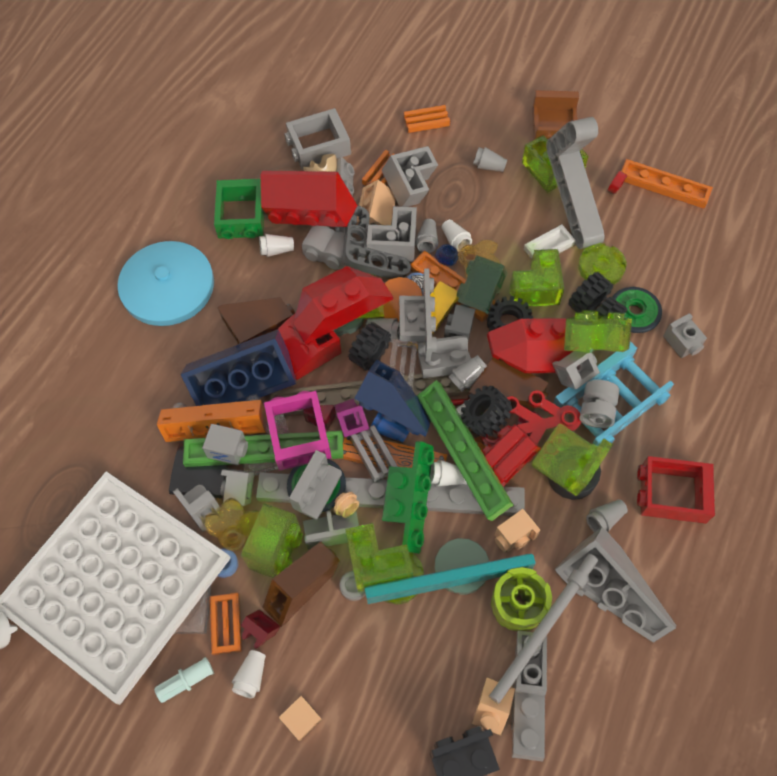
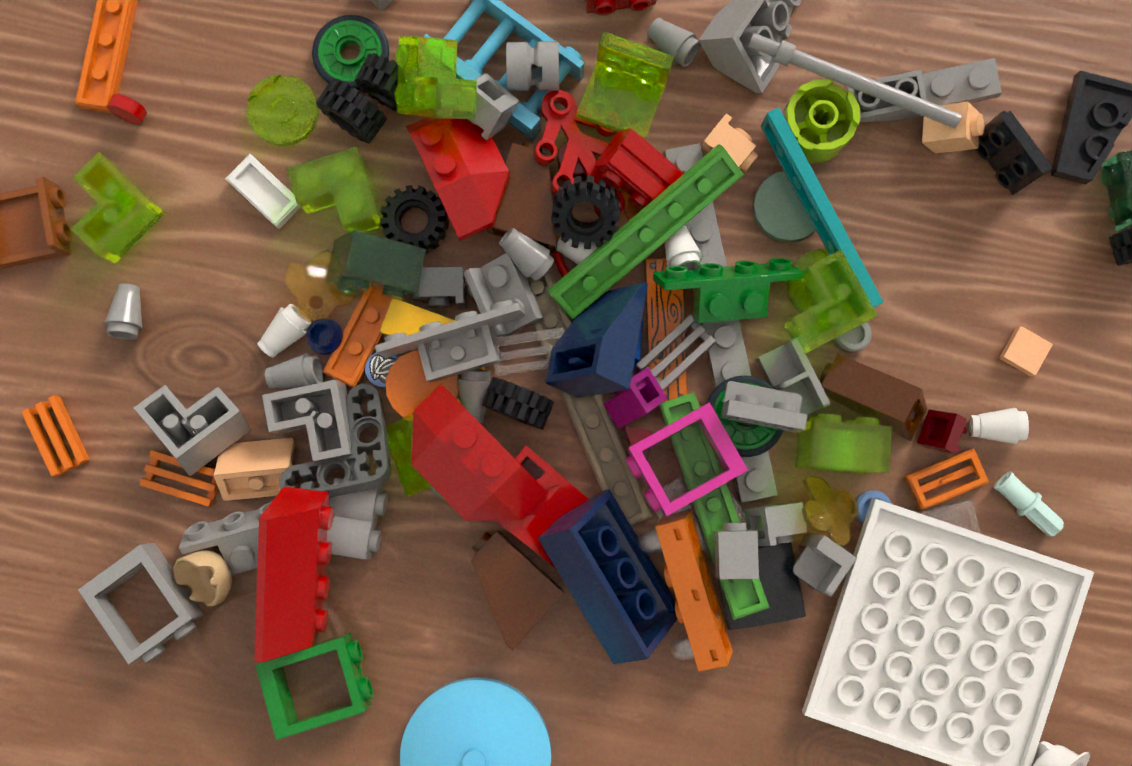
camera: 105 degrees left, 20 degrees up
(275, 244) = (368, 605): white cone -> none
(346, 504) = (761, 368): light nougat plate -> none
(573, 182) = (122, 178): light grey beam -> none

